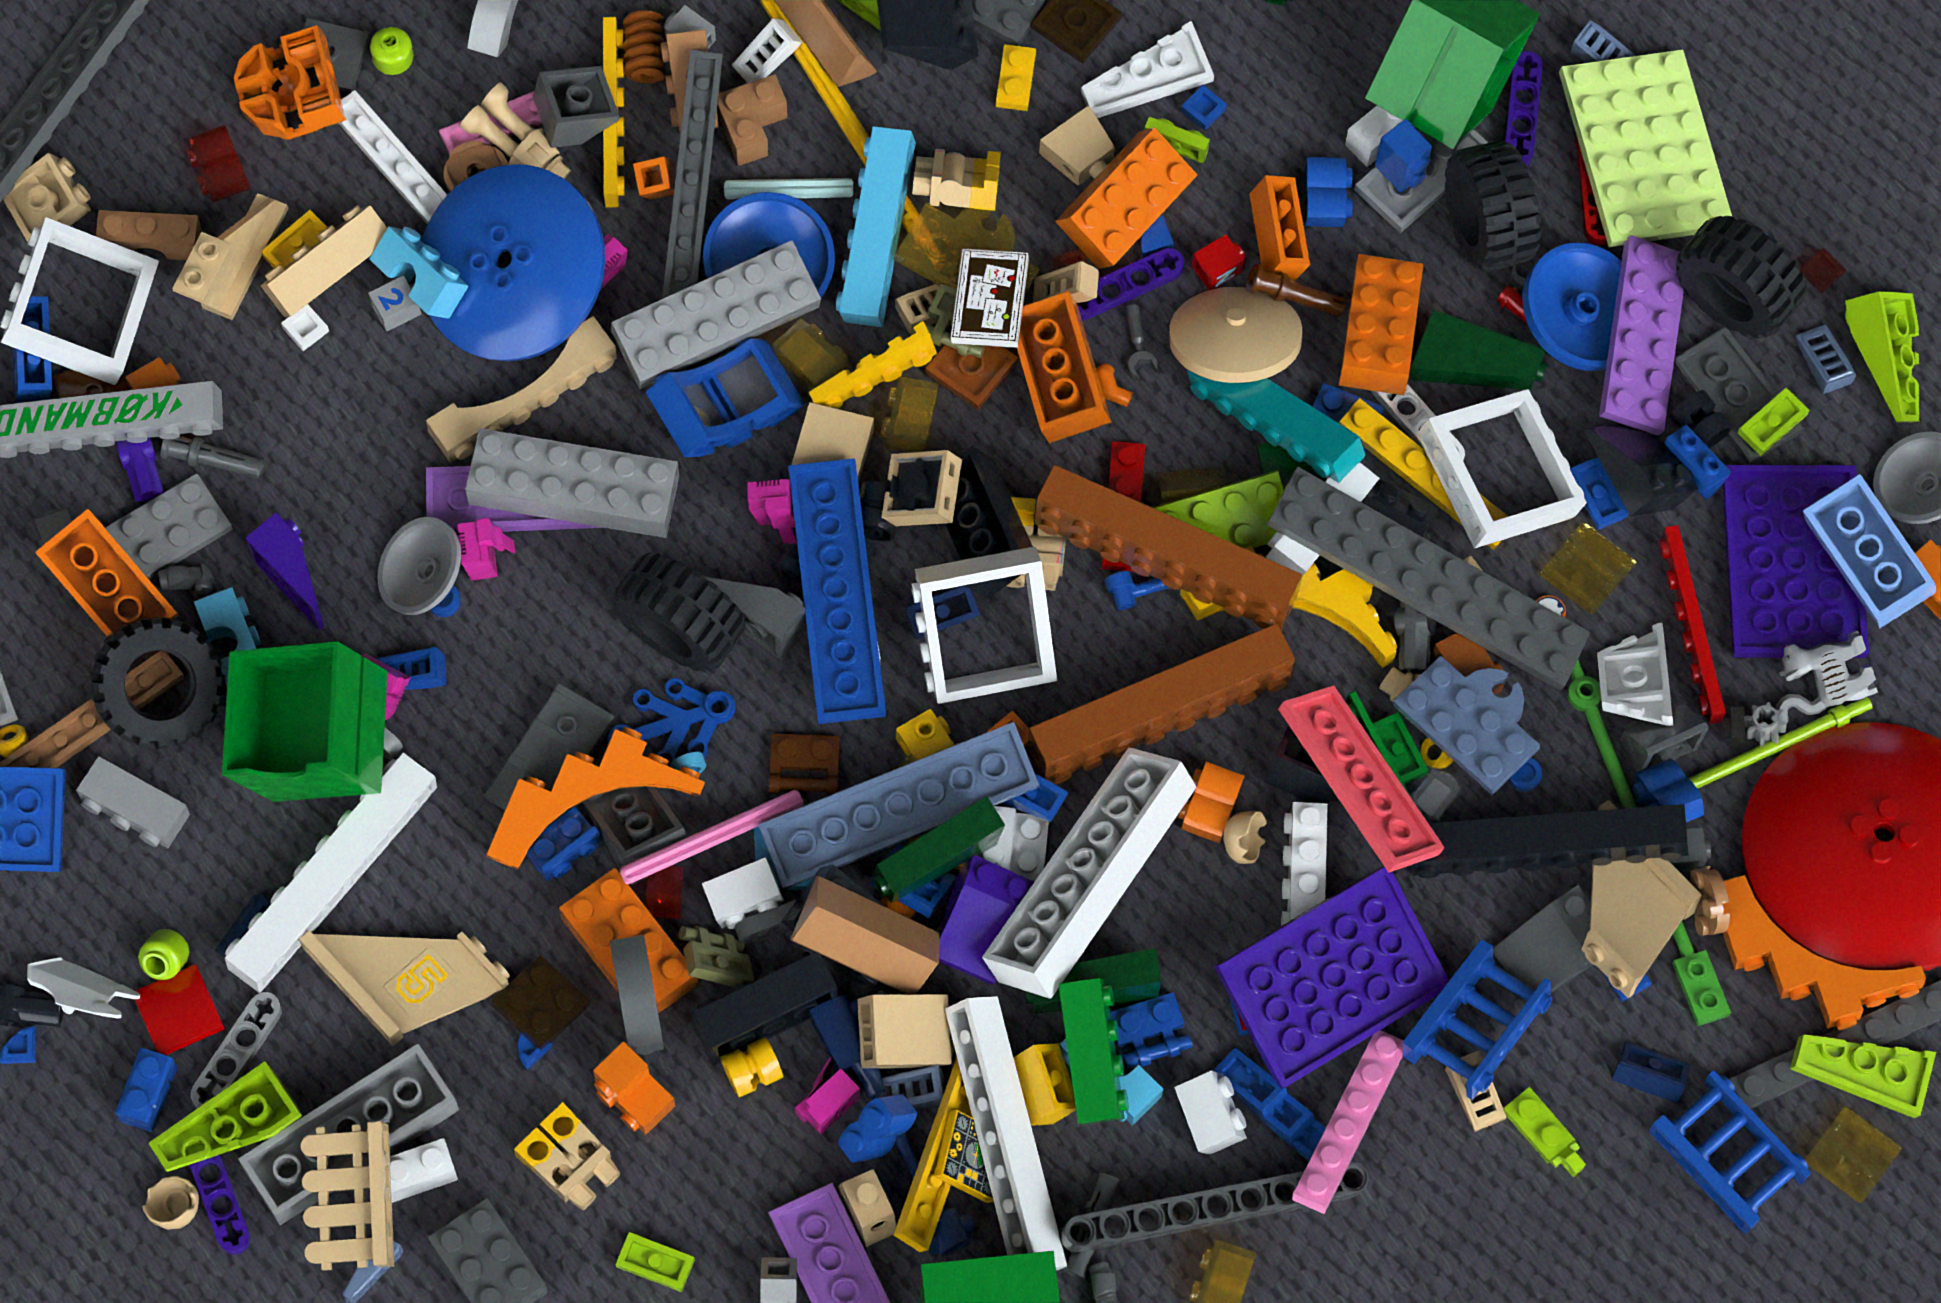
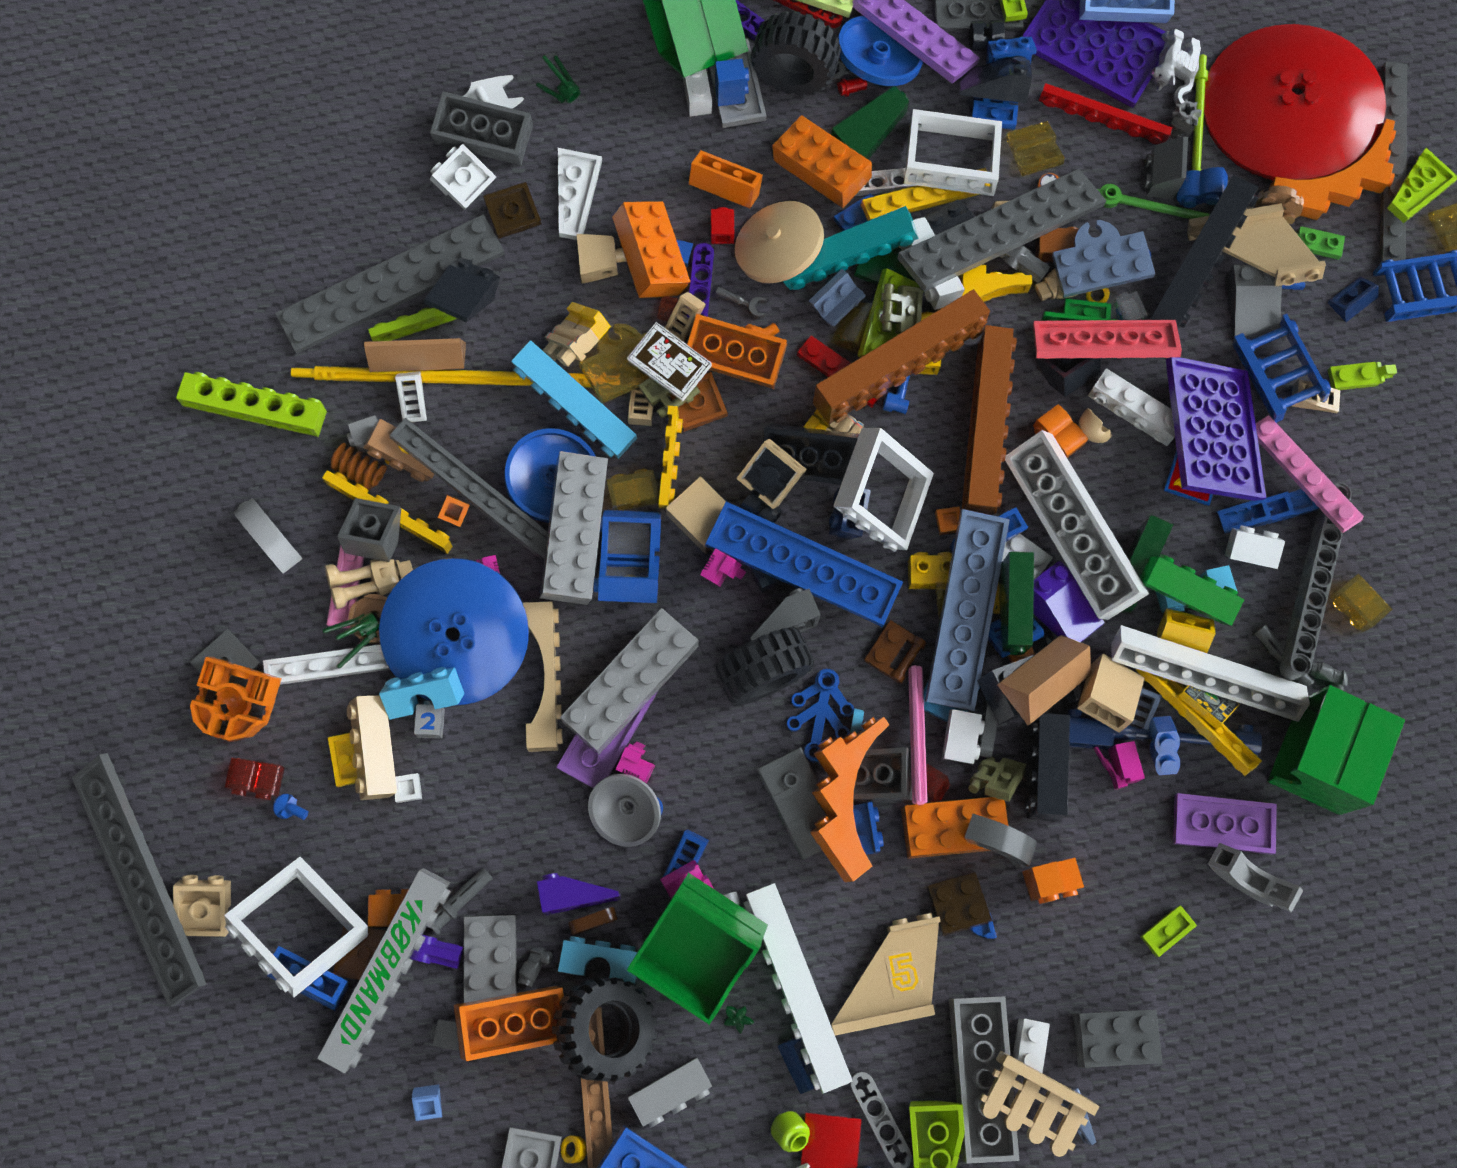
camera: 60 degrees left, 5 degrees up
(167, 233) = (283, 839): medium nougat arch -> none
(209, 215) = (286, 806): none -> blue plate
(224, 266) = (337, 814): tan piece -> none
(259, 829) = (737, 1018): none -> dark green plant
(274, 610) = (593, 920): none -> reddish brown beam
(391, 50) = (252, 621): lime head -> none
(459, 164) = (364, 625): none -> dark green plant
(571, 1169) = (1080, 942): tan hips -> none
(745, 112) = (444, 430): medium nougat brick -> none
(751, 1067) = (1079, 798): yellow wheel -> none
(793, 187) = (509, 438): light aqua axle -> none
(868, 1206) = (1206, 780): tan torso -> none
(911, 415) = (708, 455): clear yellow brick -> none
(1015, 77) = (525, 266): yellow plate -> none
(1146, 1021) = (1176, 545): blue plate -> none
(1187, 143) = (636, 193): lime plate -> none
(1204, 107) = (617, 175): blue plate -> none
(1210, 443) = (836, 298): none -> sand blue bracket
(1243, 526) = (908, 307): none -> olive plate
(1282, 287) = (764, 199): reddish brown pin -> none
(1326, 193) = (715, 140): blue brick -> none
(1636, 678) = (1123, 161): white wing -> none

